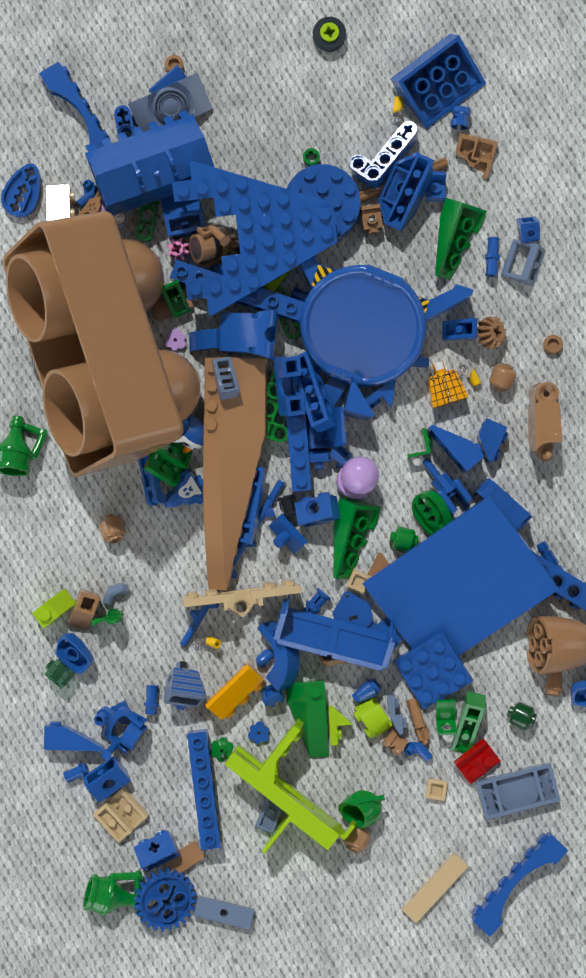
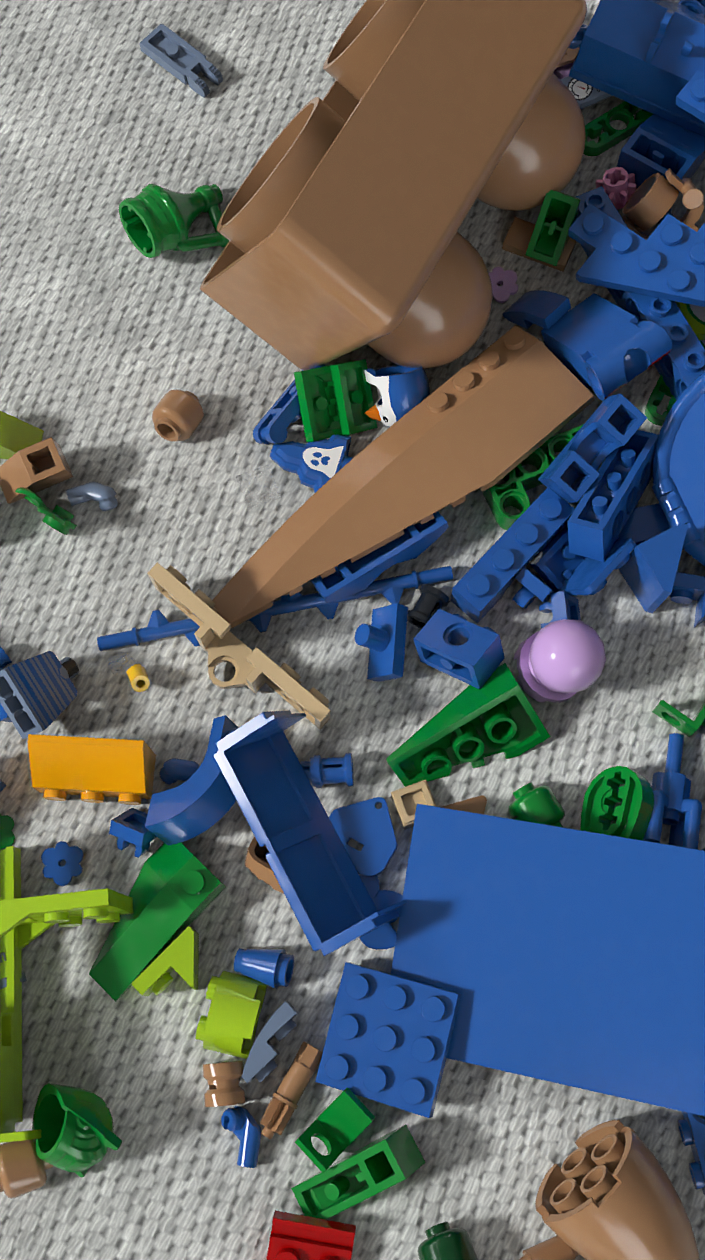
camera: 55 degrees right, 15 degrees down
(226, 390) = (503, 379): sand blue slope -> none
(436, 789) = (207, 1225): tan tile -> none

